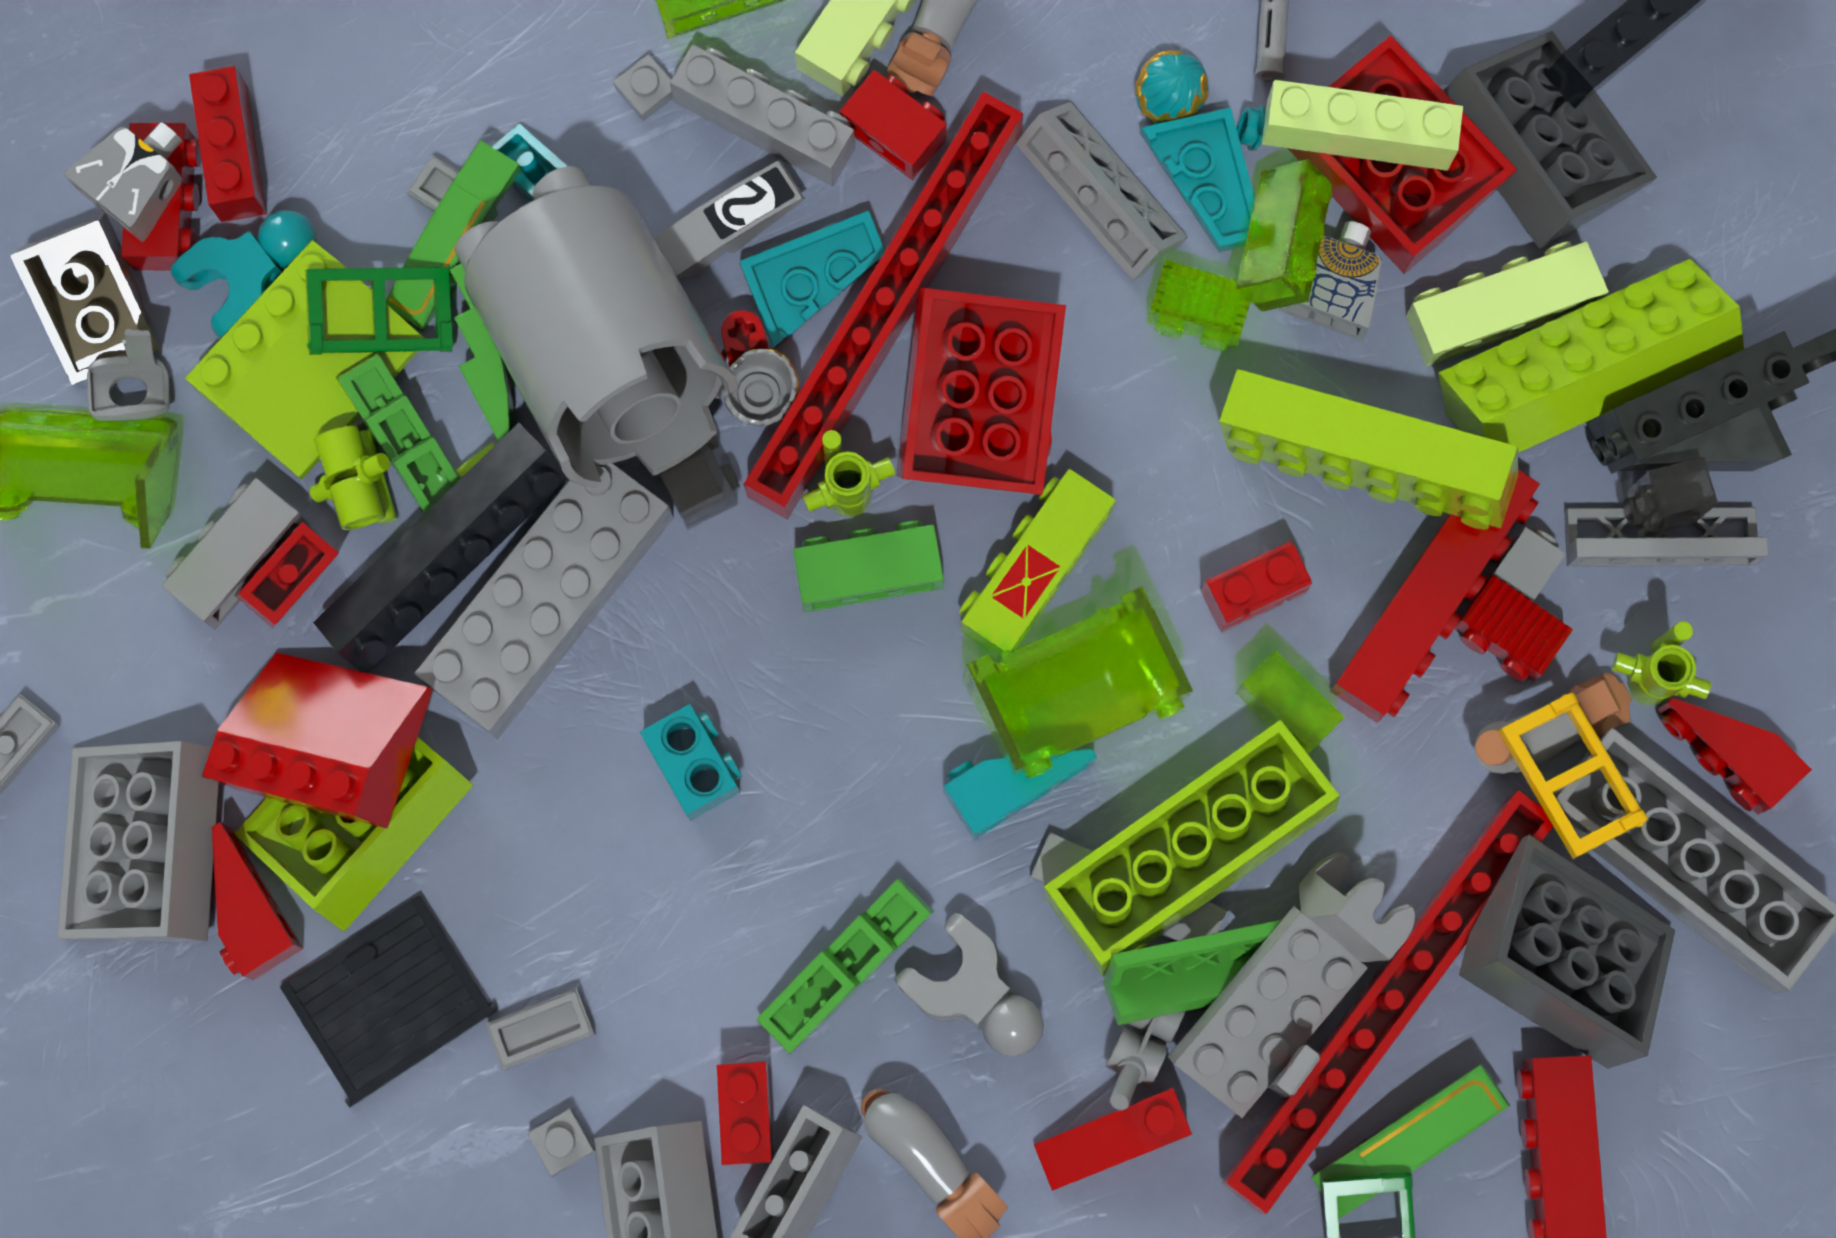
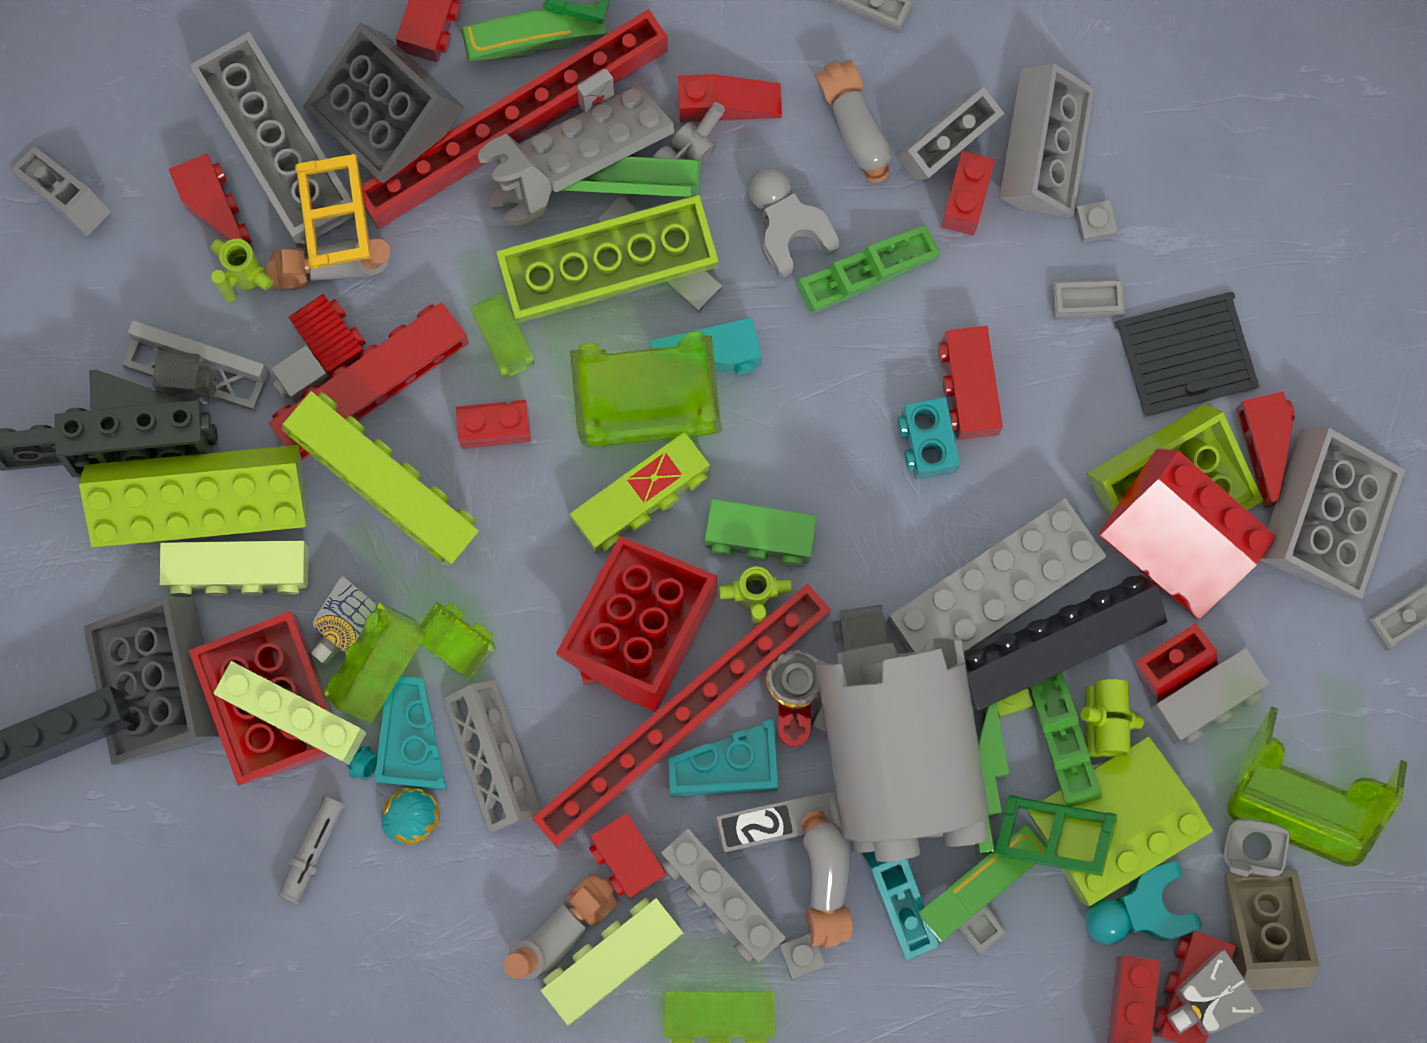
camera: 165 degrees left, 0 degrees up
(640, 170) = (830, 869): none -> light grey piece
(661, 854) = (970, 382): none -> red brick

